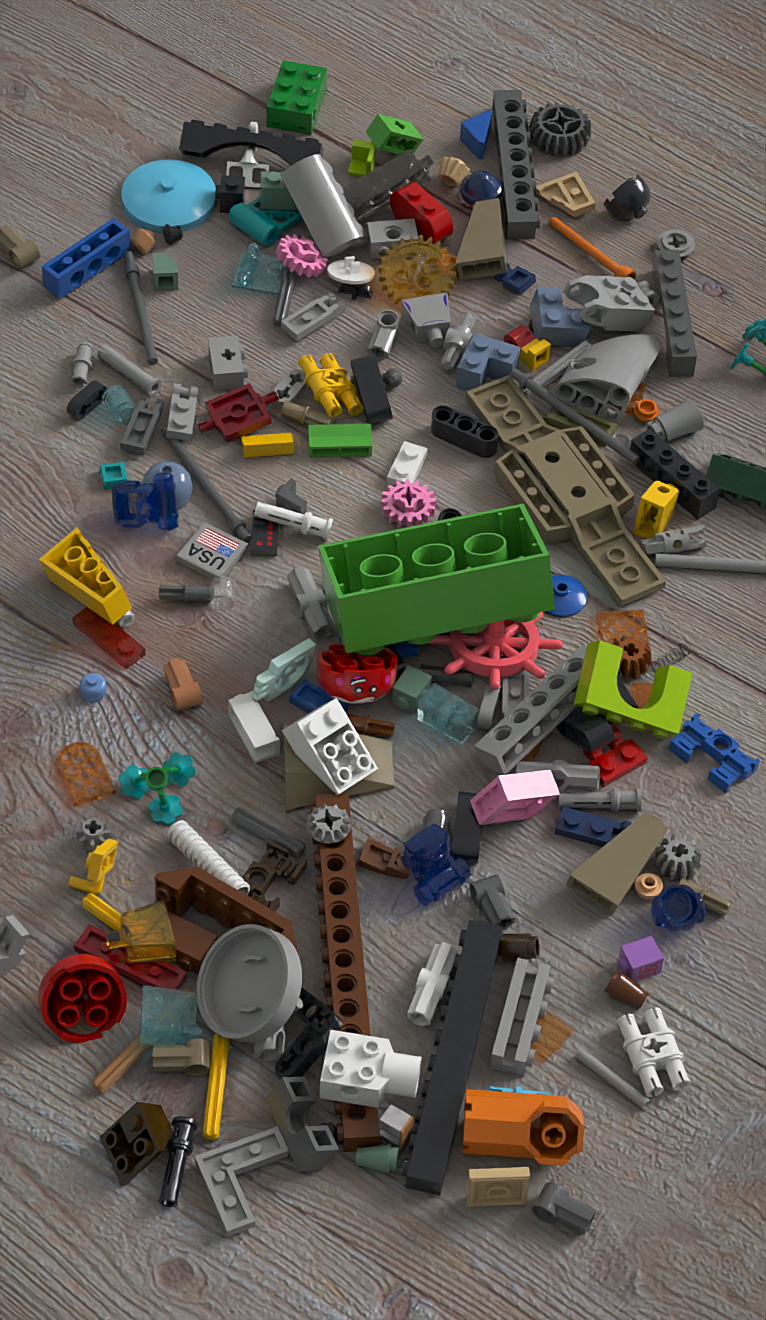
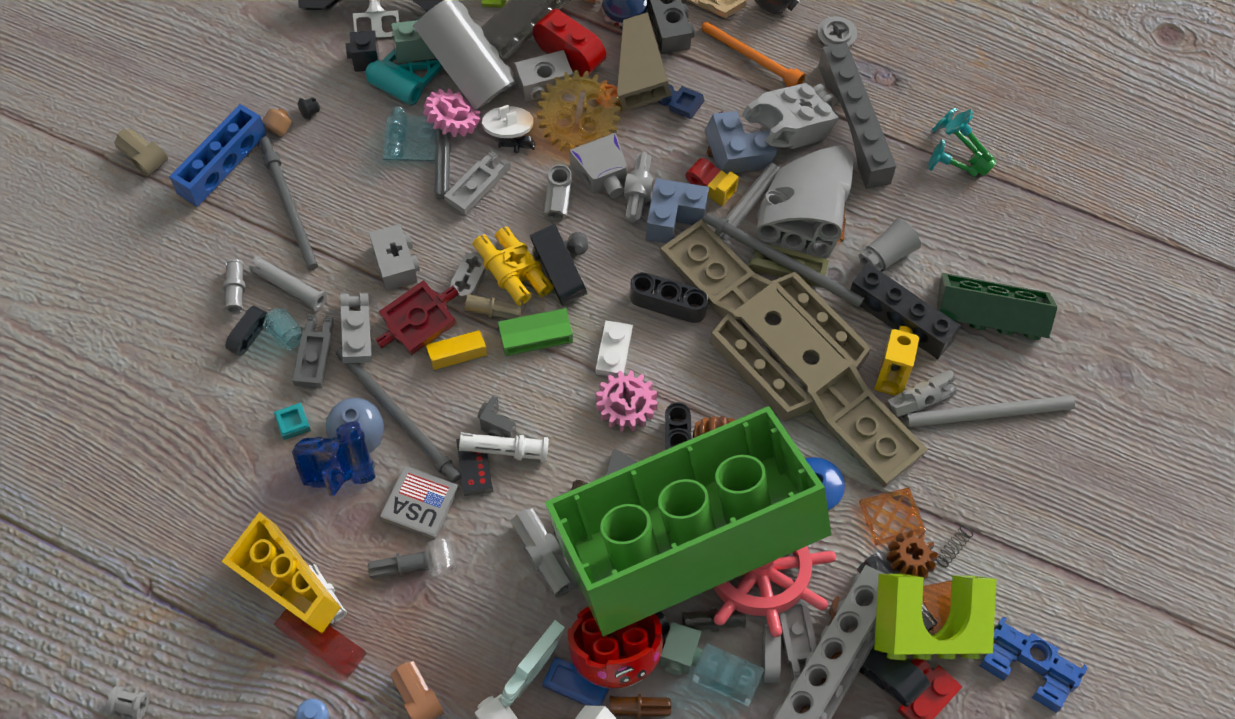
camera: 10 degrees left, 10 degrees up
(164, 272) = (307, 156): sand green brick -> none
(168, 194) = (296, 62): medium azure dish -> none
(646, 410) = (854, 236): orange plate -> none

